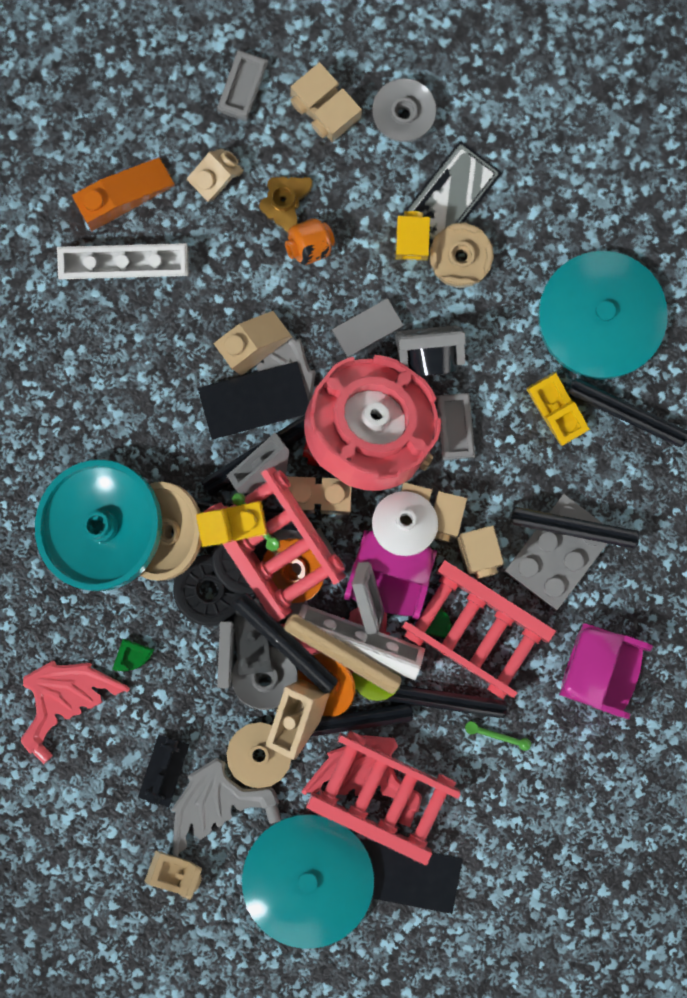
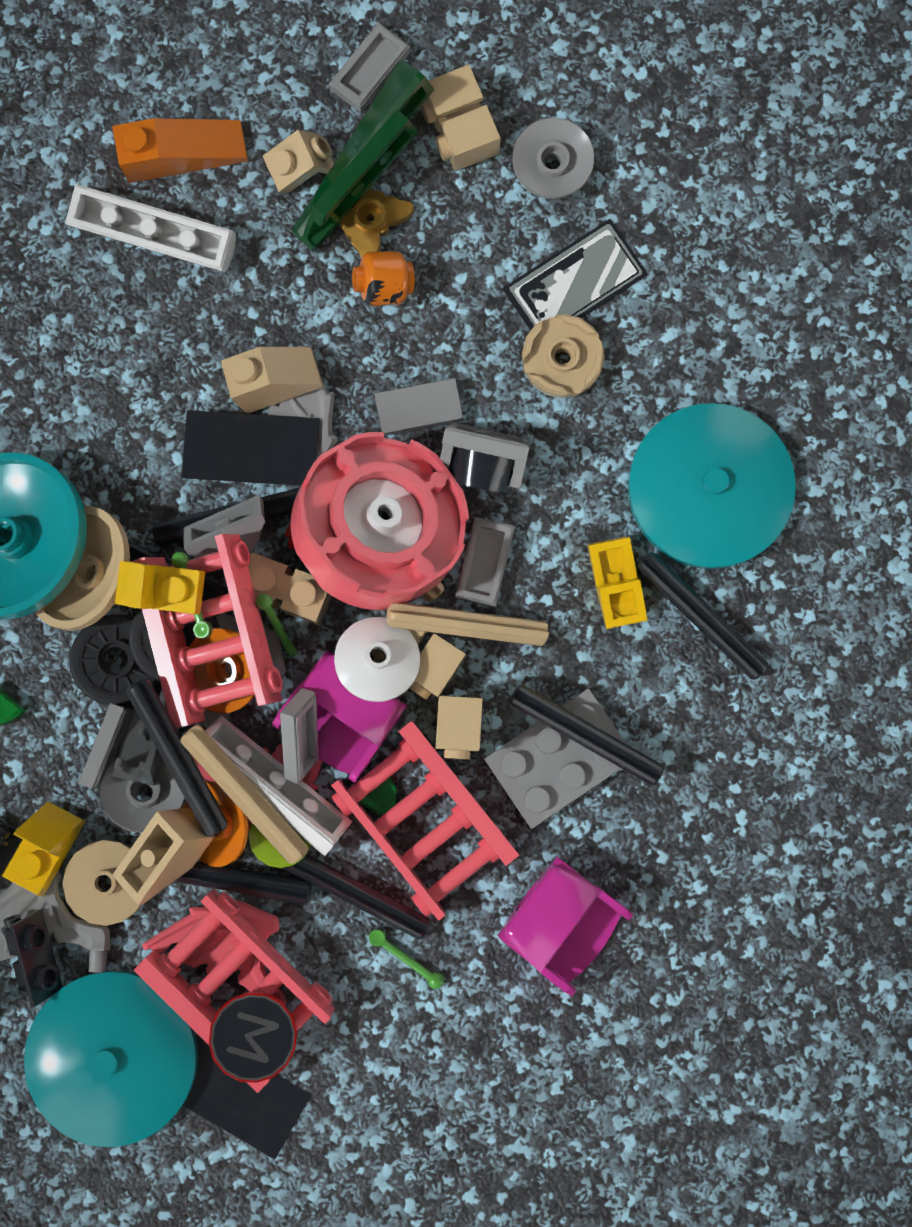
camera: 25 degrees right, 0 degrees up
(205, 745) = (44, 847): none -> yellow slope
(233, 838) = (36, 963): none -> black hinge
(265, 153) = (367, 155): none -> dark green wedge
(309, 509) = (265, 603): none -> bright green hinge
(409, 825) = (252, 1037): none -> black tile
(412, 236) = (510, 313): yellow brick -> none
(460, 476) = (467, 624): none -> tan axle

